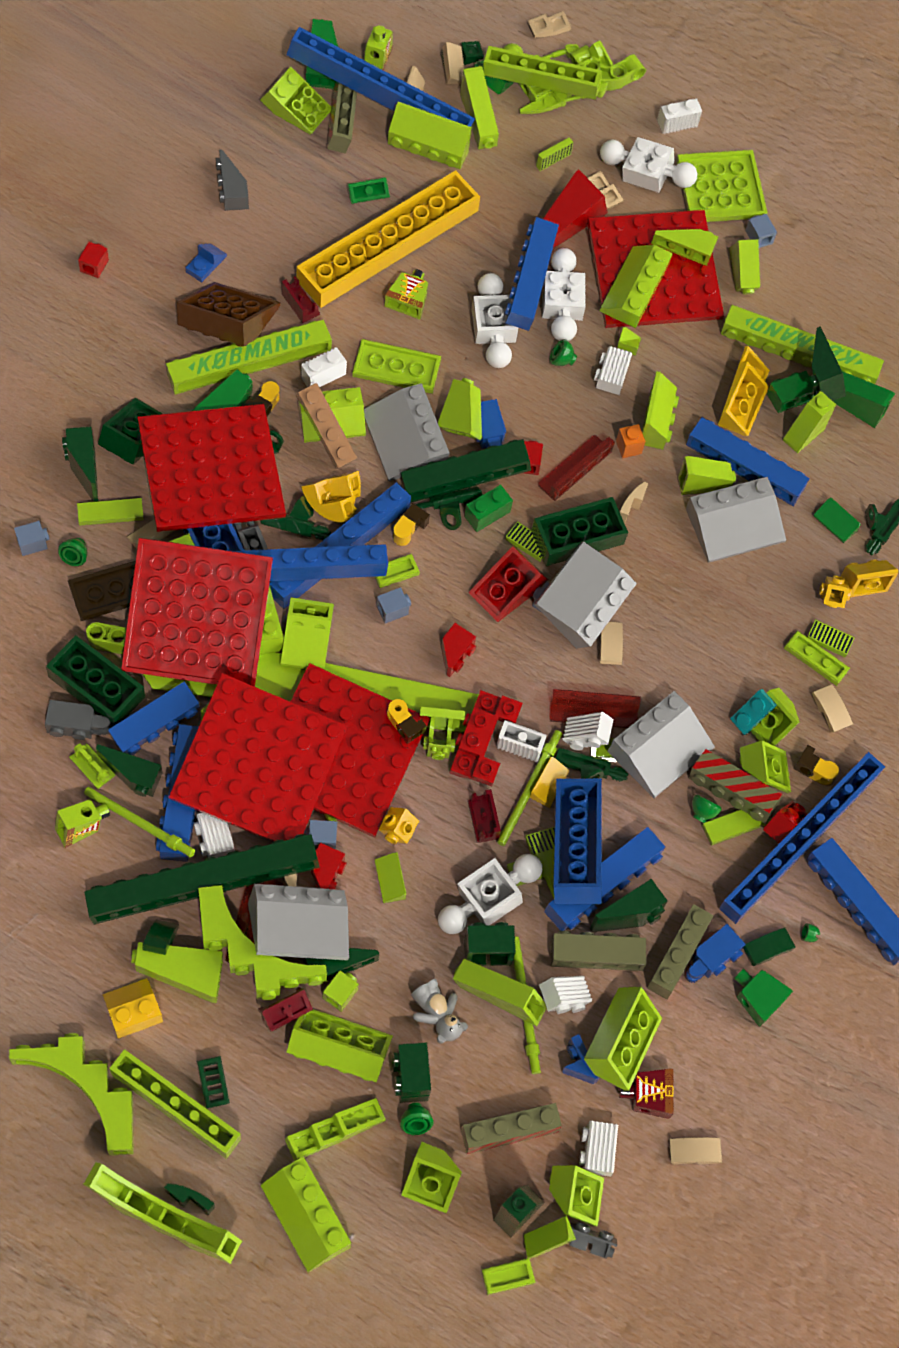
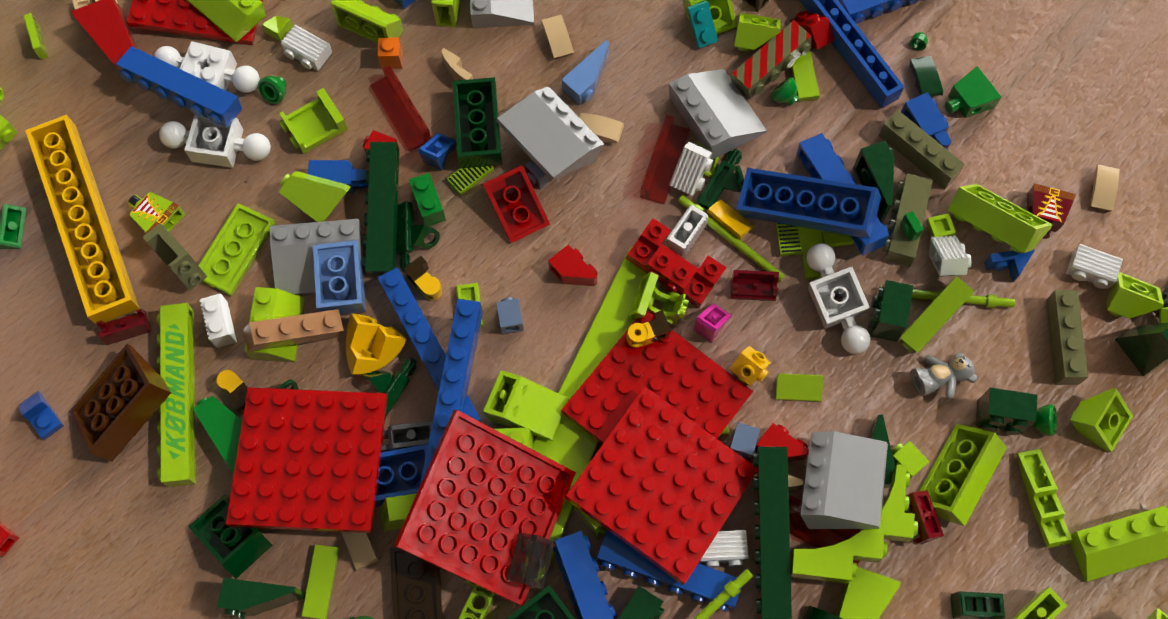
camera: 65 degrees left, 5 degrees up
(160, 665) = (531, 560): none -> clear smoke bracket
(367, 326) = (168, 250): none -> olive panel
(387, 452) = (339, 277): none -> medium blue slope
(436, 784) = (711, 322): none -> dark pink slope
(539, 396) = (313, 123): none -> lime panel
(540, 502) = (436, 150): none -> blue slope
(583, 945) = (911, 226): none -> green plate
(600, 986) = (941, 226): none -> lime plate
(663, 619) = (583, 79): none -> medium blue slope
(698, 584) = (557, 36): none -> tan slope

